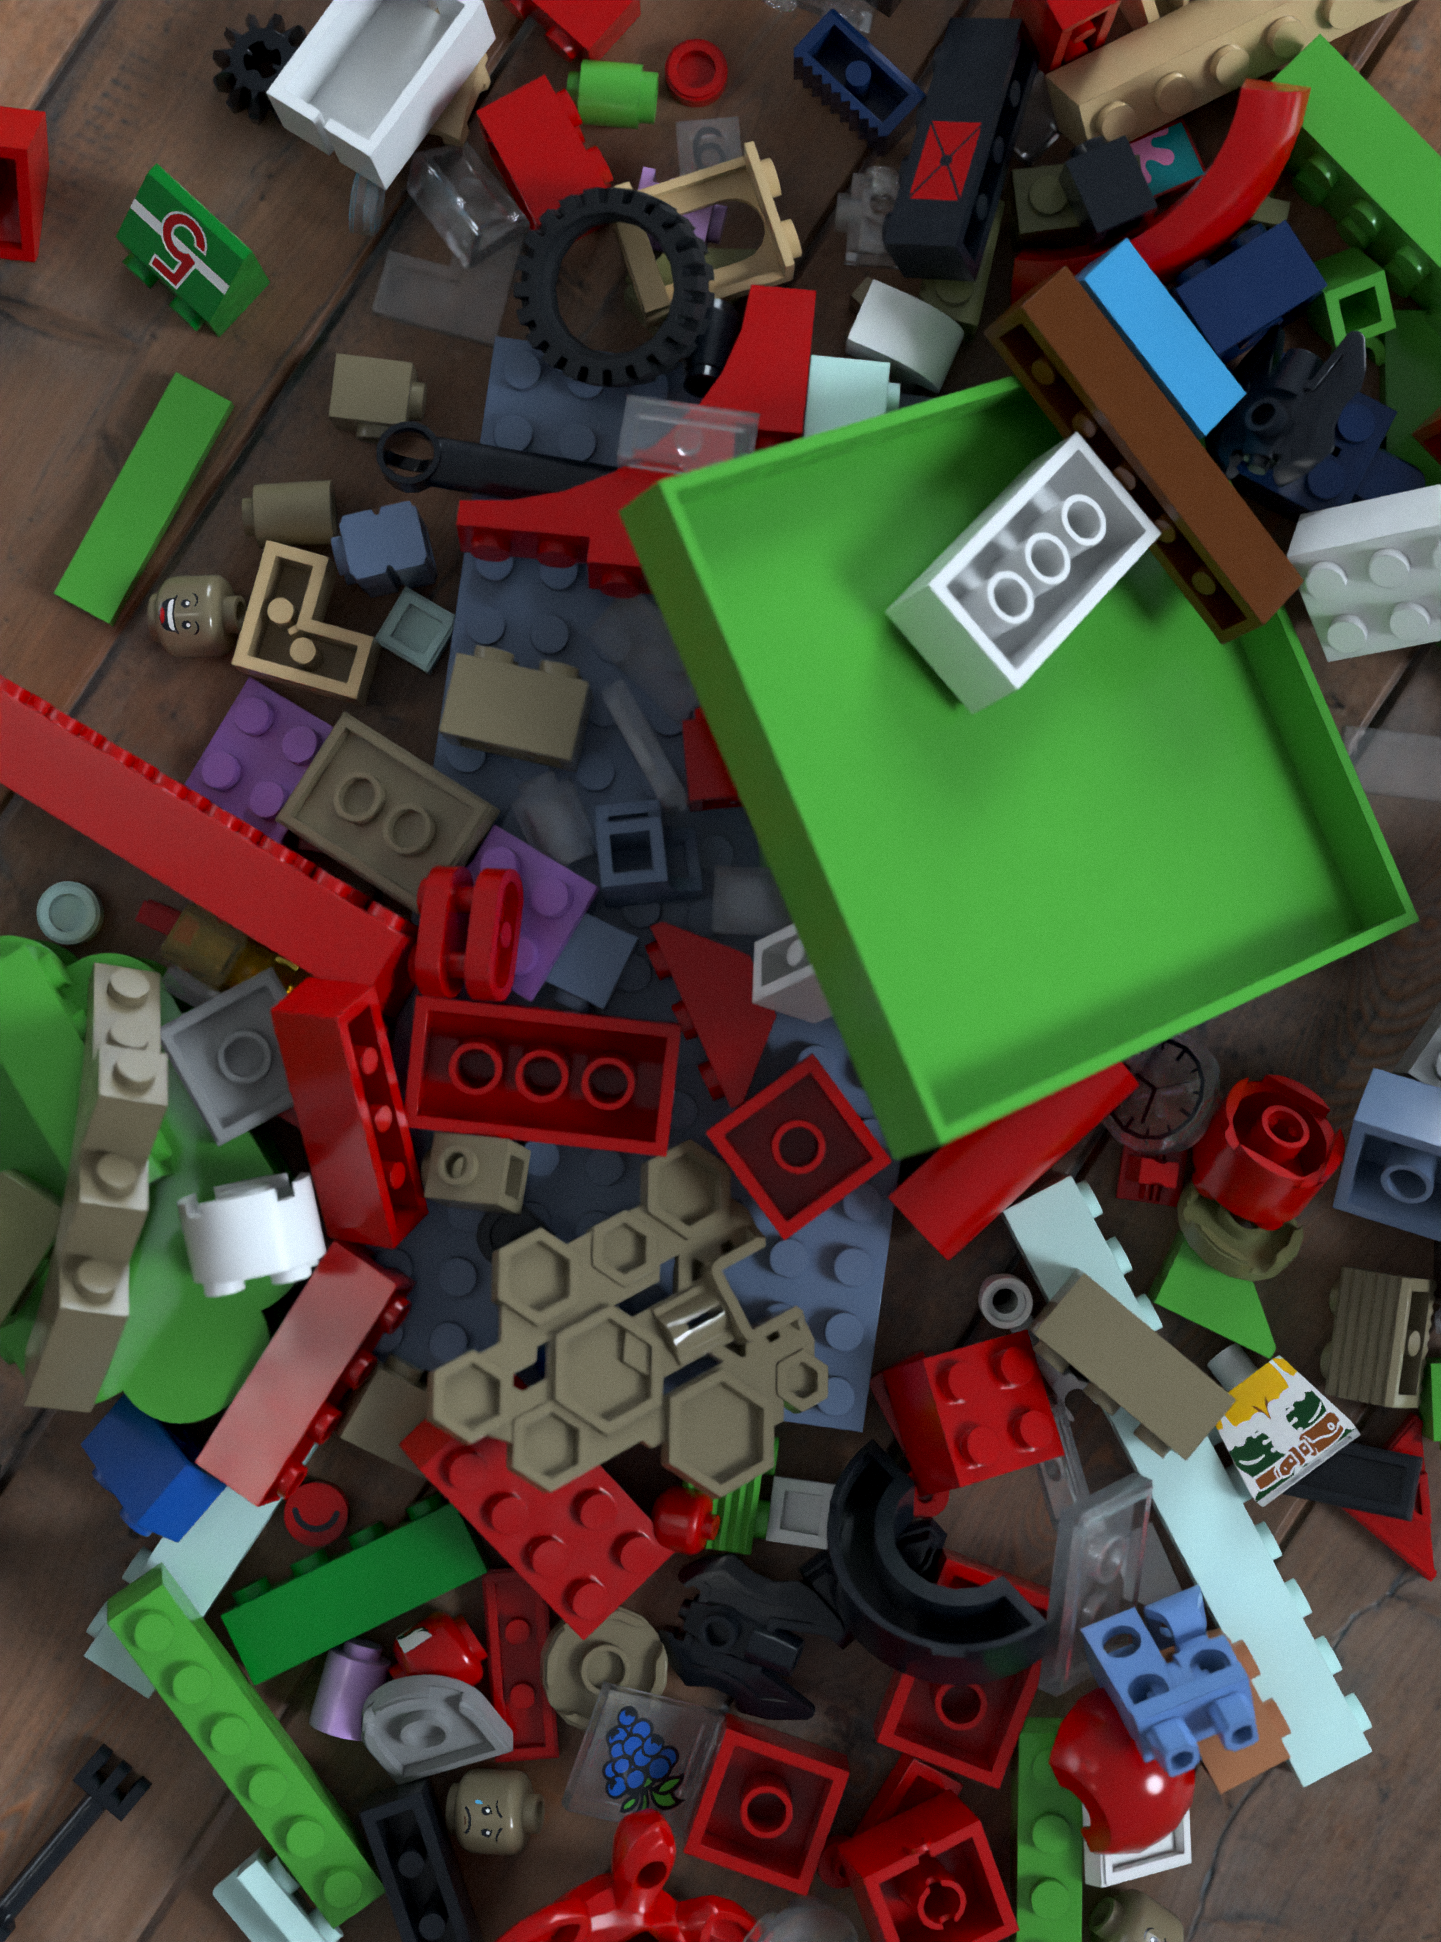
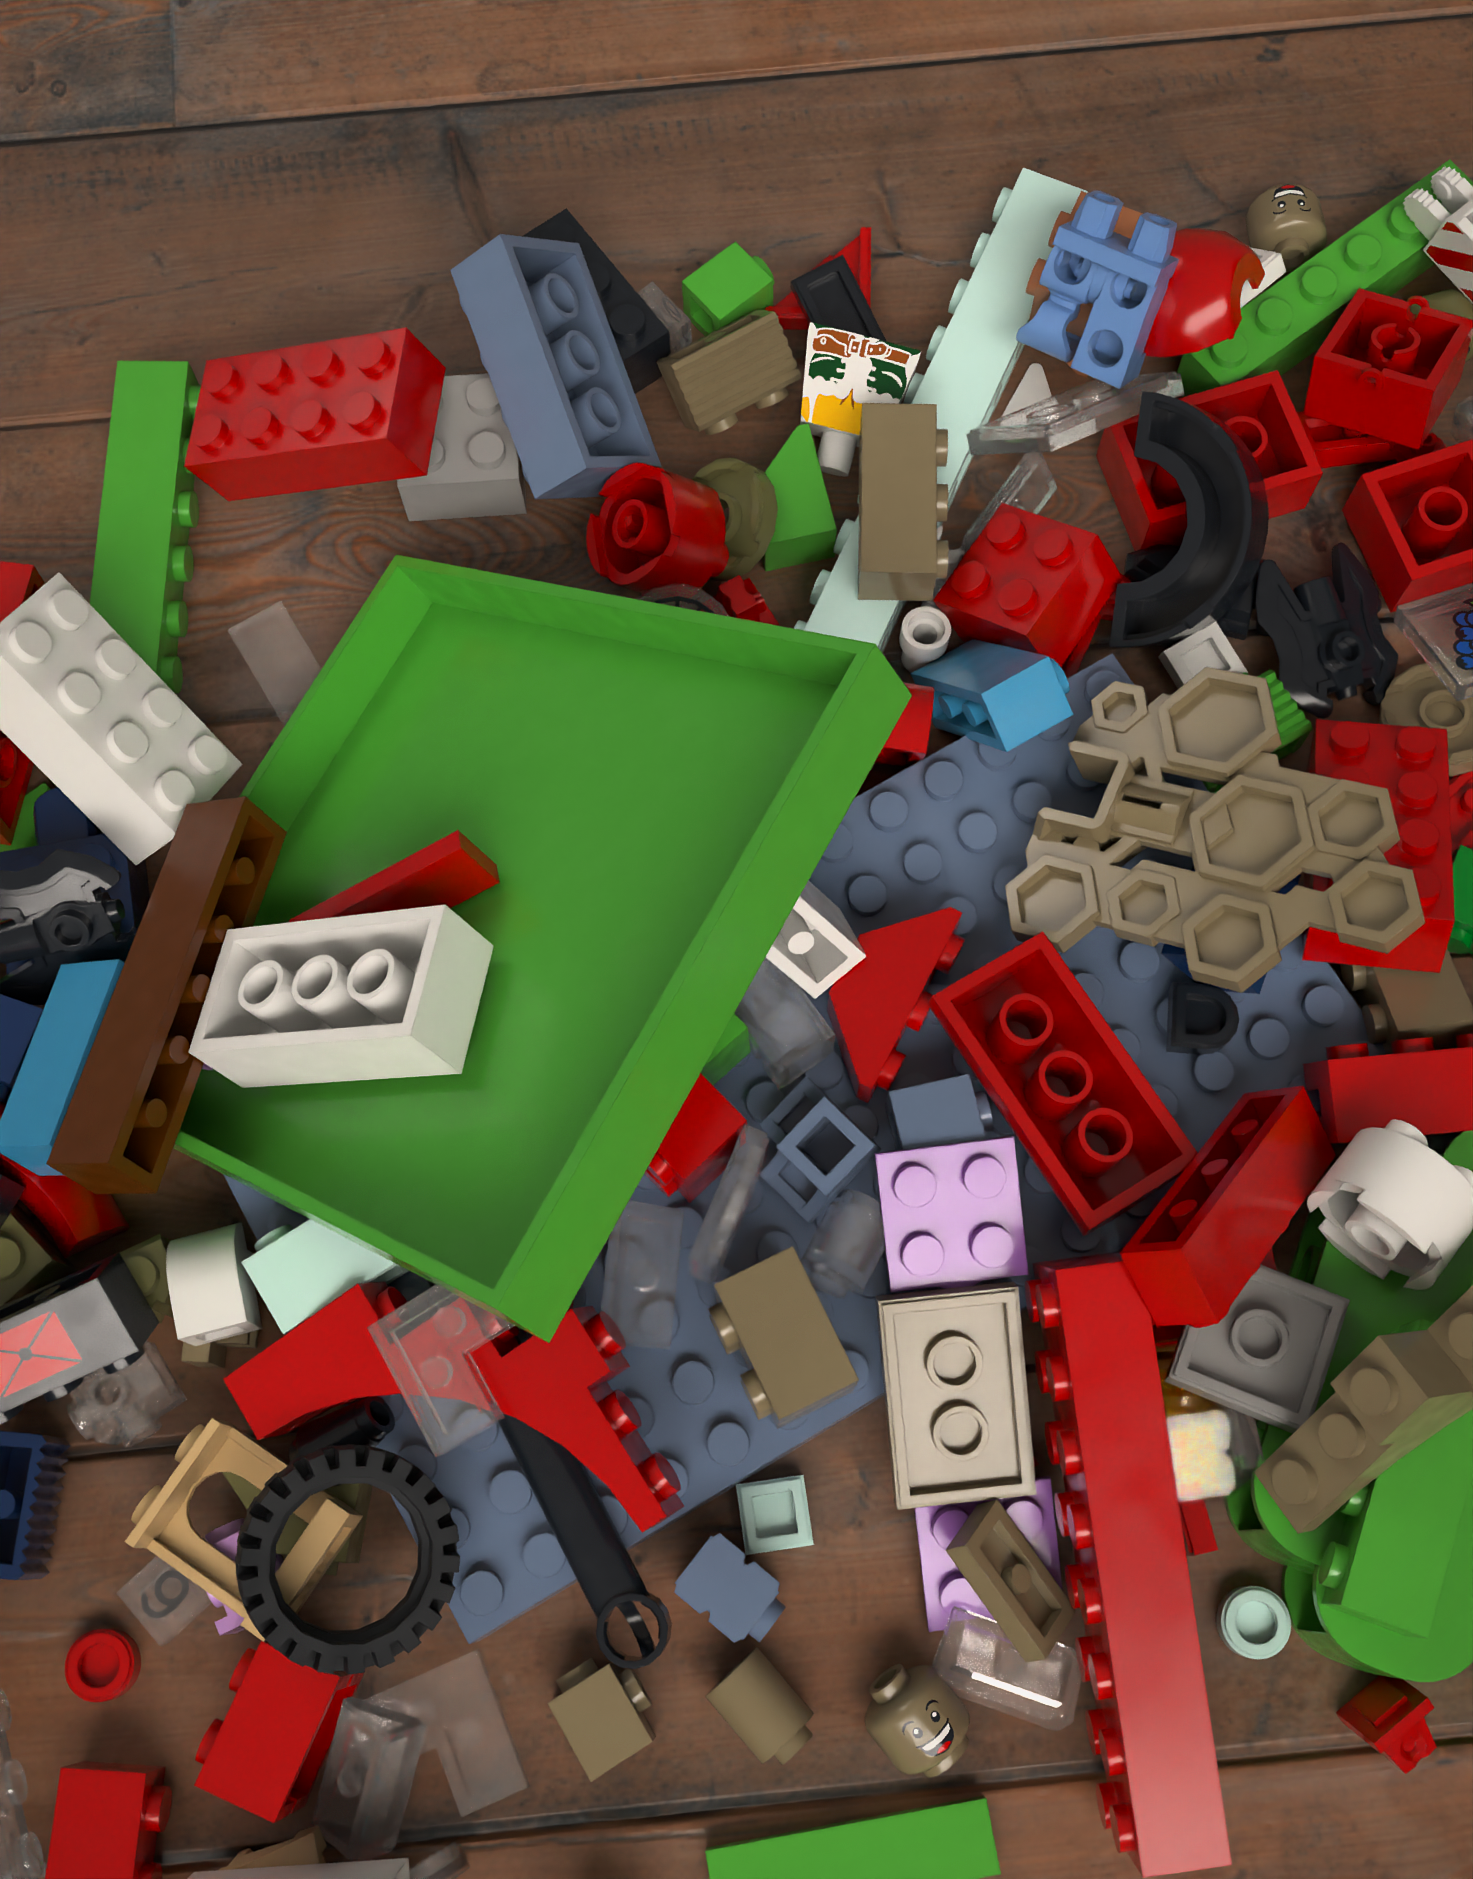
camera: 125 degrees left, 15 degrees down
(179, 709) = (988, 1670): none -> clear slope
(232, 753) = (1011, 1581): none -> dark tan plate
(286, 633) = (876, 1613): tan brick -> none
(467, 933) = (1043, 1234): red brick -> none
(476, 1173) = (1186, 1074): dark tan brick -> none
(614, 93) = (169, 1720): bright green brick -> none
(684, 1520) = (1298, 729): red piece -> none
(798, 1146) = (946, 842): red brick -> none
(900, 1301) = (995, 693): none -> dark azure brick
(1080, 683) = (433, 876): none -> red tile

